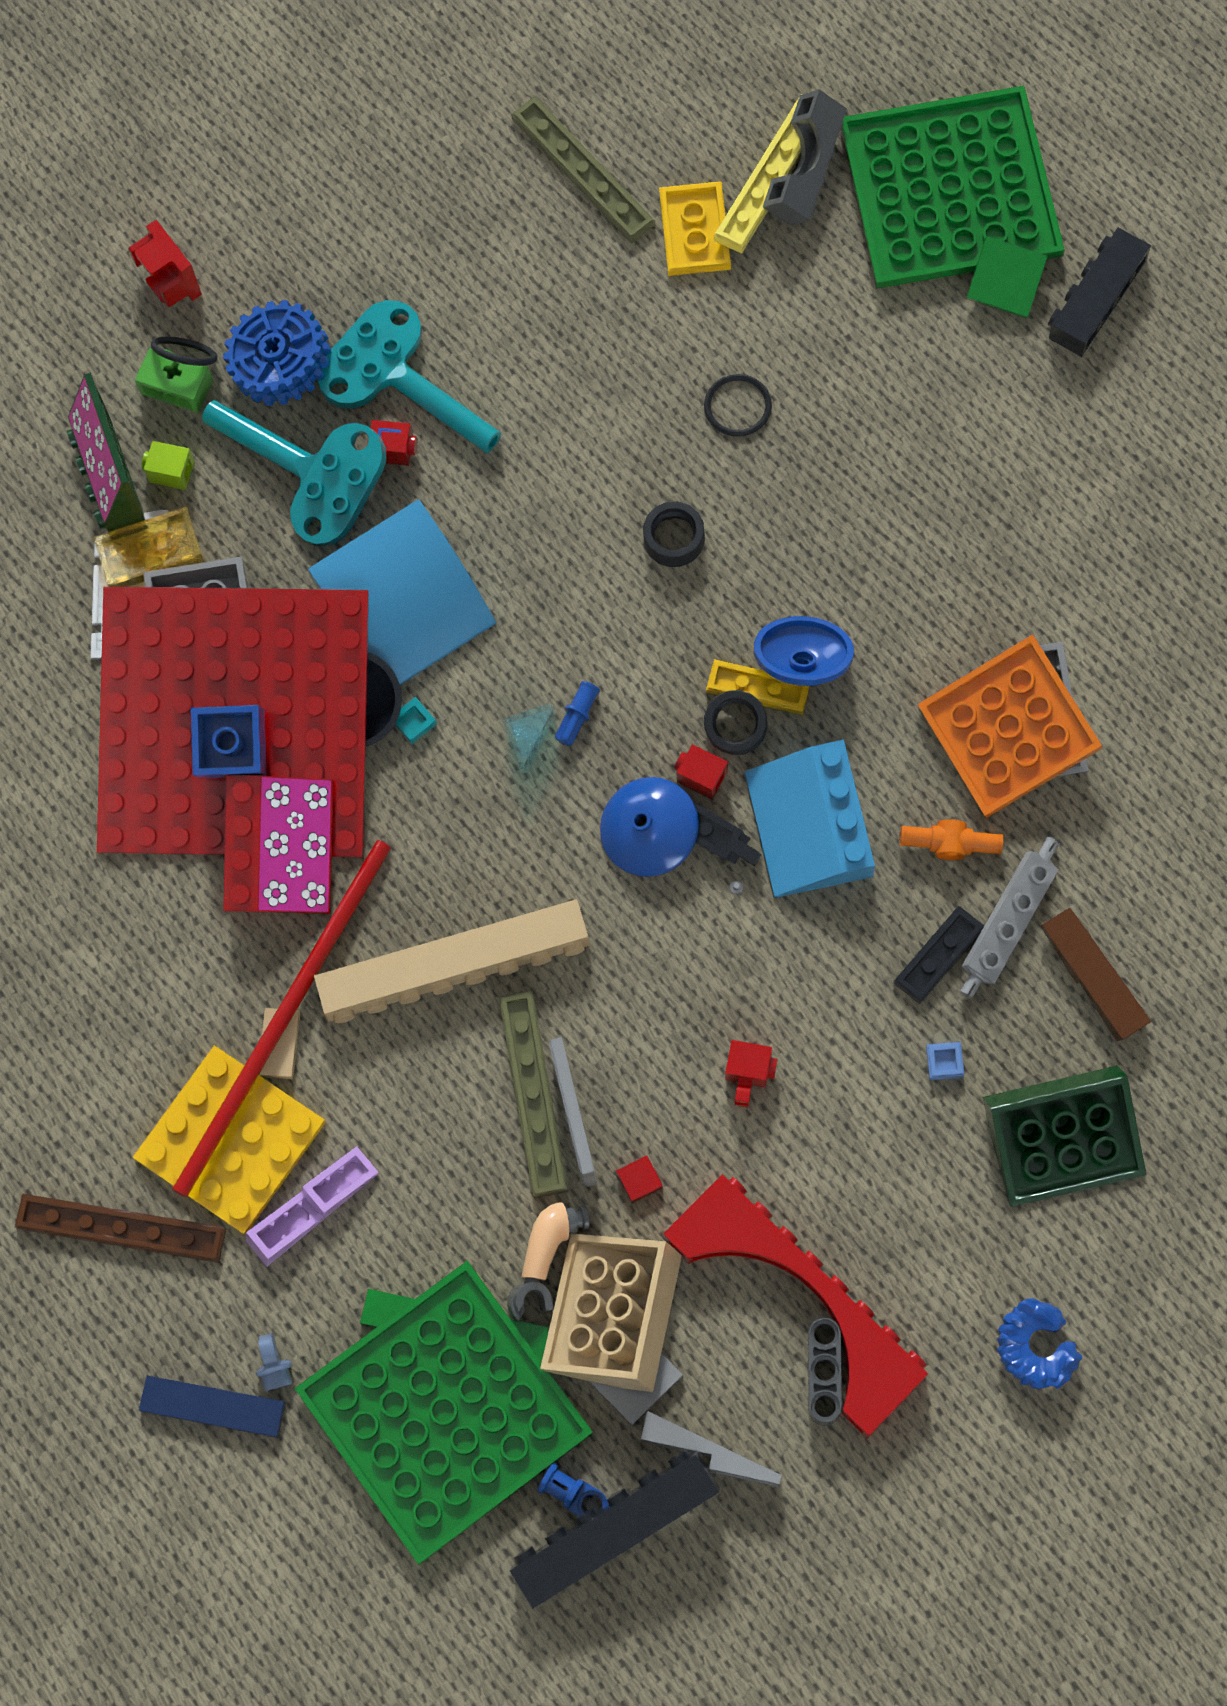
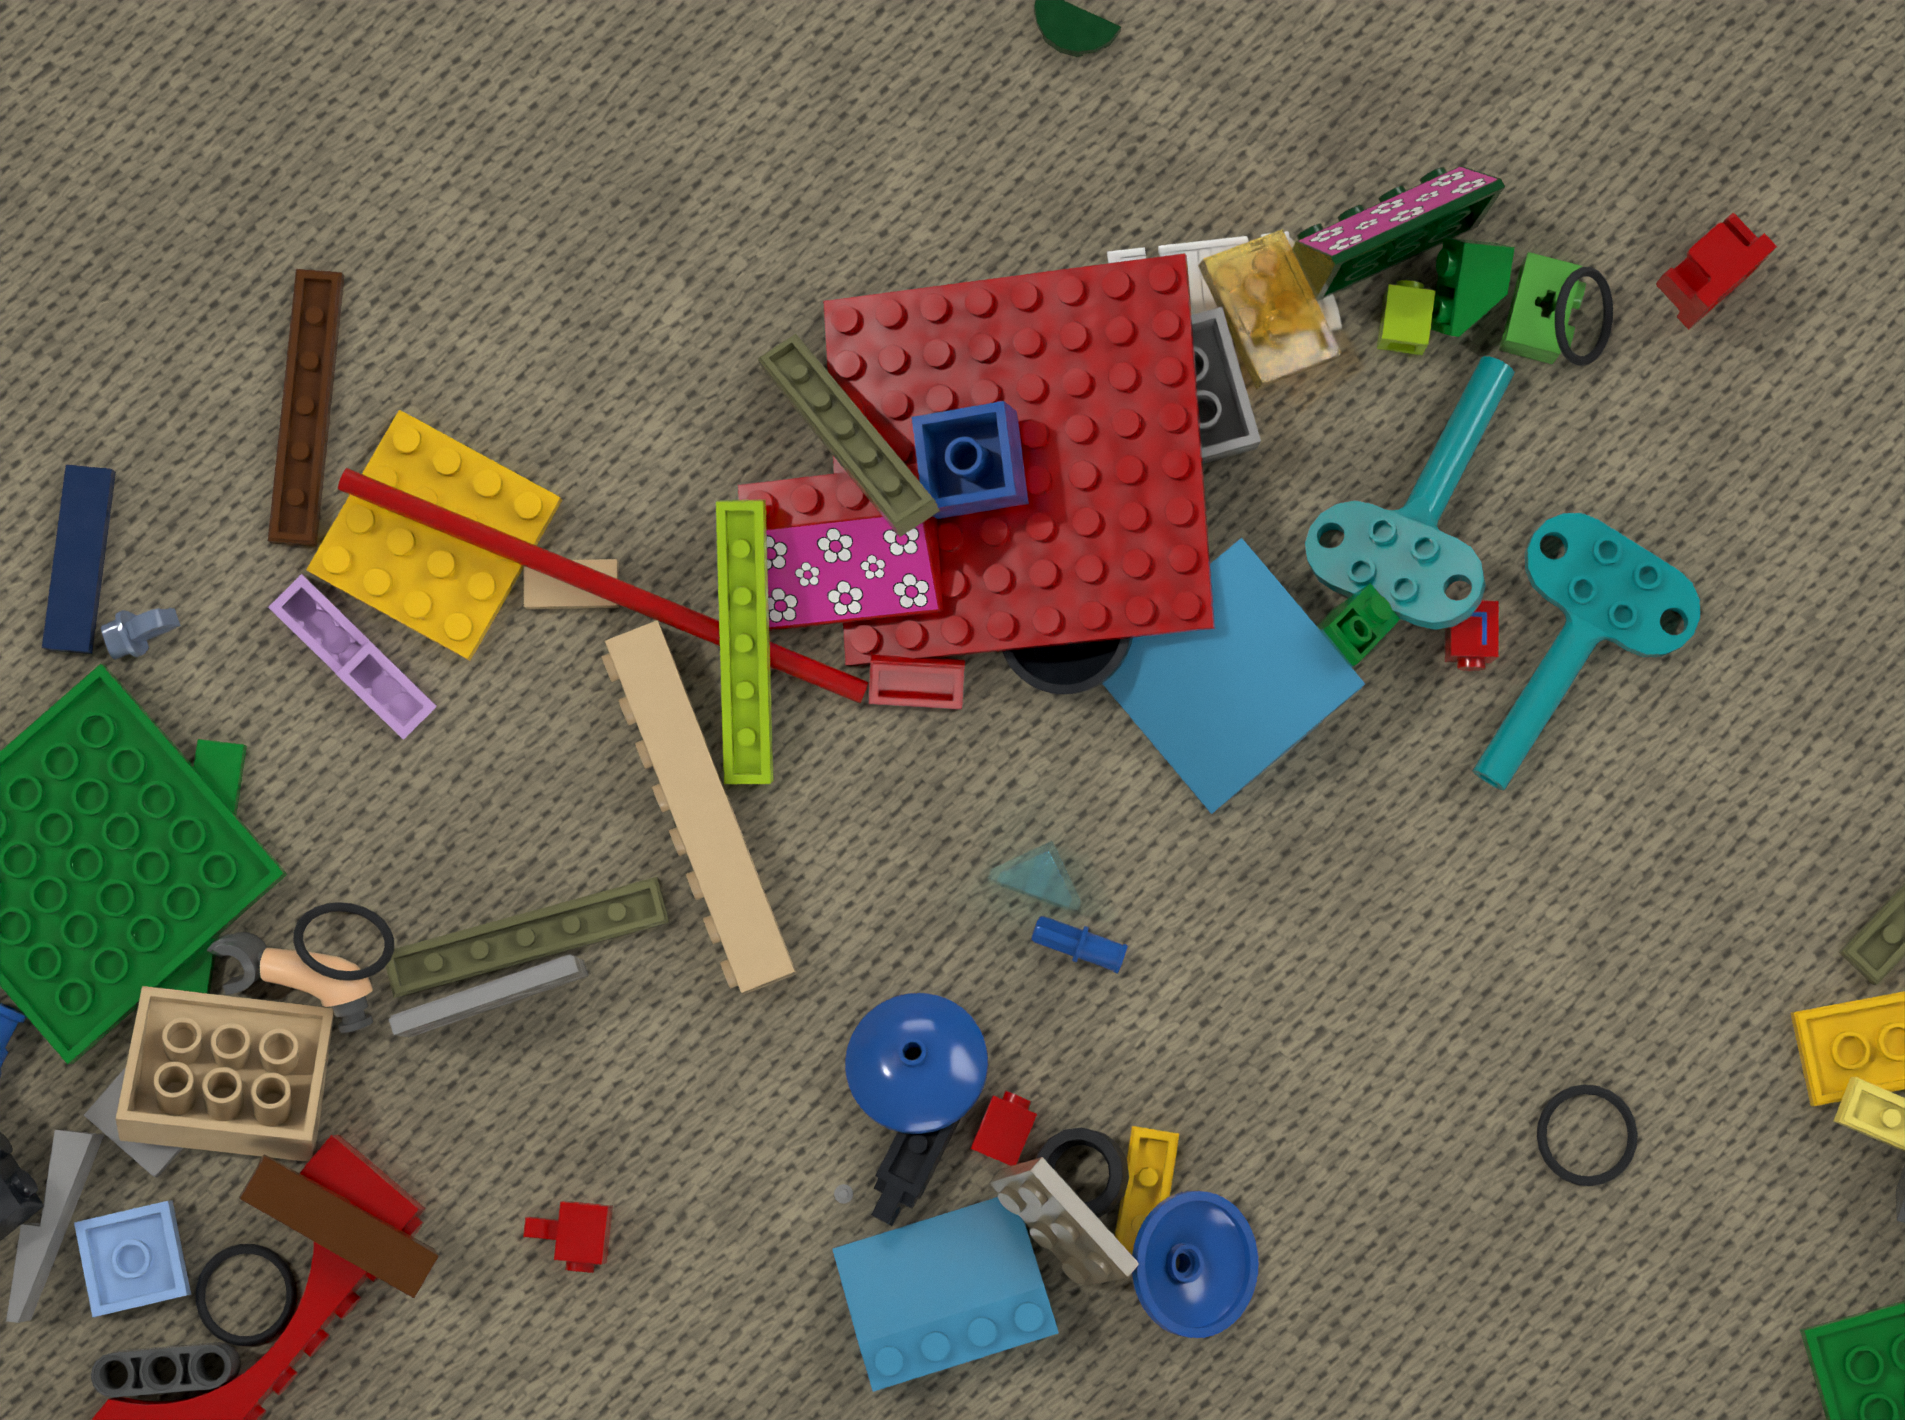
camera: 80 degrees right, 10 degrees up
(149, 419) = (1469, 282): none -> green slope
(198, 827) = (848, 435): none -> olive tile
(277, 353) = (1603, 417): blue piece -> none
(336, 914) = (744, 641): none -> lime plate
(376, 504) = (1358, 624): none -> green slope
(380, 807) = (916, 682): none -> tile
(414, 720) = (1051, 715): teal tile -> none
(542, 1226) = (339, 974): none -> black tyre
(639, 1179) = (416, 1094): red tile -> none
(671, 510) = (1403, 1052): black tyre -> none
(729, 1225) = (339, 1226): none -> reddish brown slope
(741, 1393) = (132, 1258): none -> light blue plate
(768, 729) = (1063, 1223): none -> dark tan plate
(769, 1347) = (285, 1315): none -> black tyre

